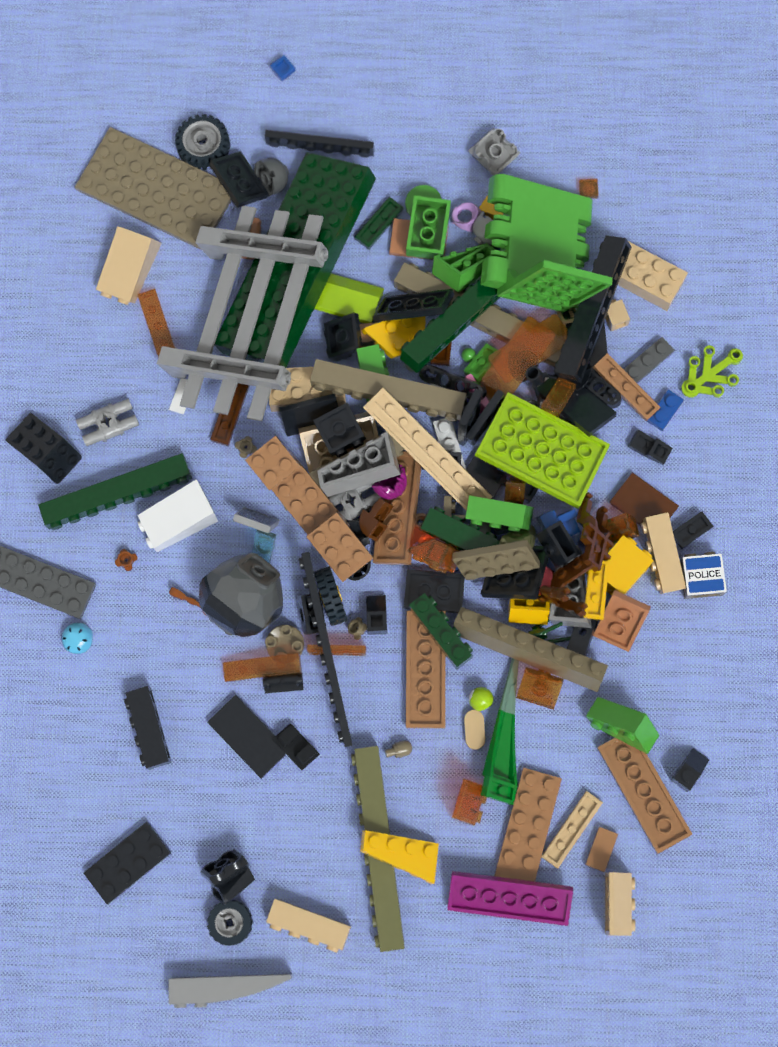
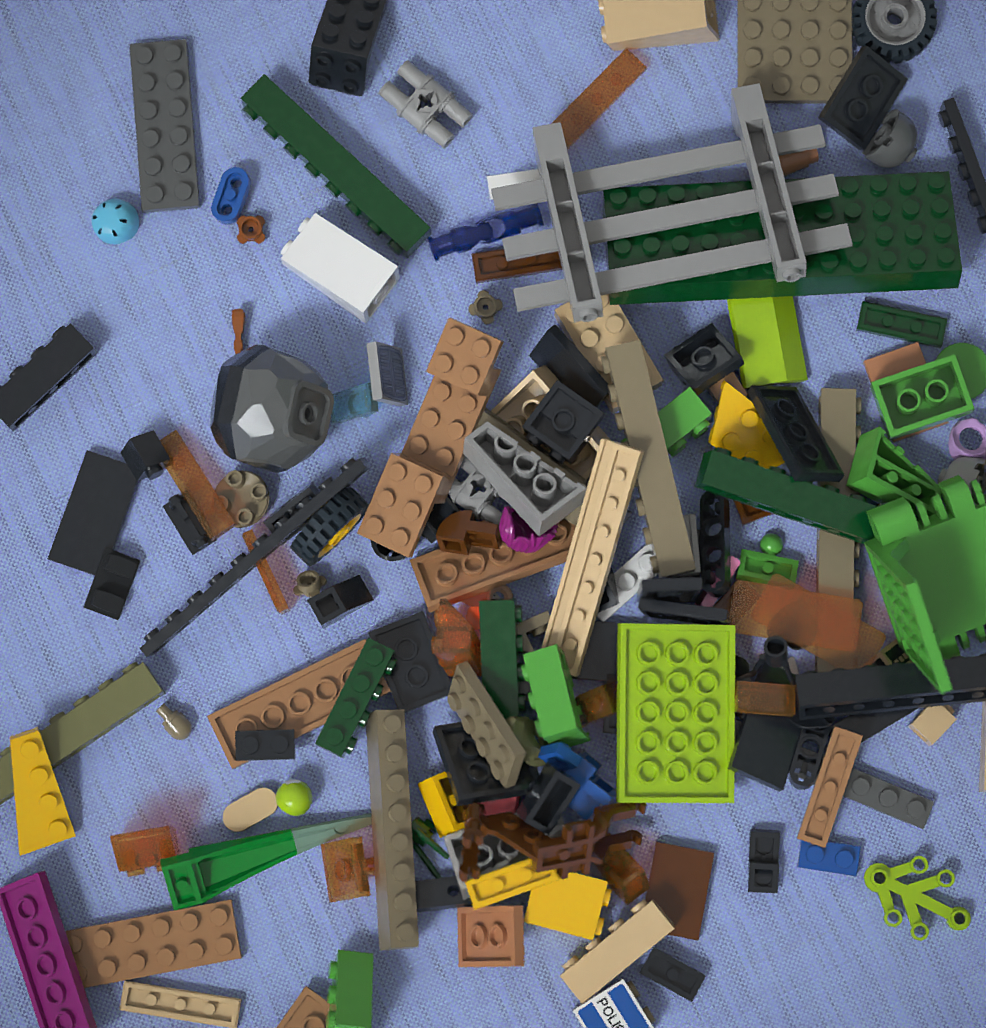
camera: 60 degrees right, 5 degrees up
(100, 562) = (232, 197): none -> blue plate
(199, 437) = (466, 237): none -> clear blue piece
(230, 687) = (145, 456): none -> black brick
(441, 700) = (265, 745): none -> black plate
(535, 526) = (559, 755): none -> blue plate

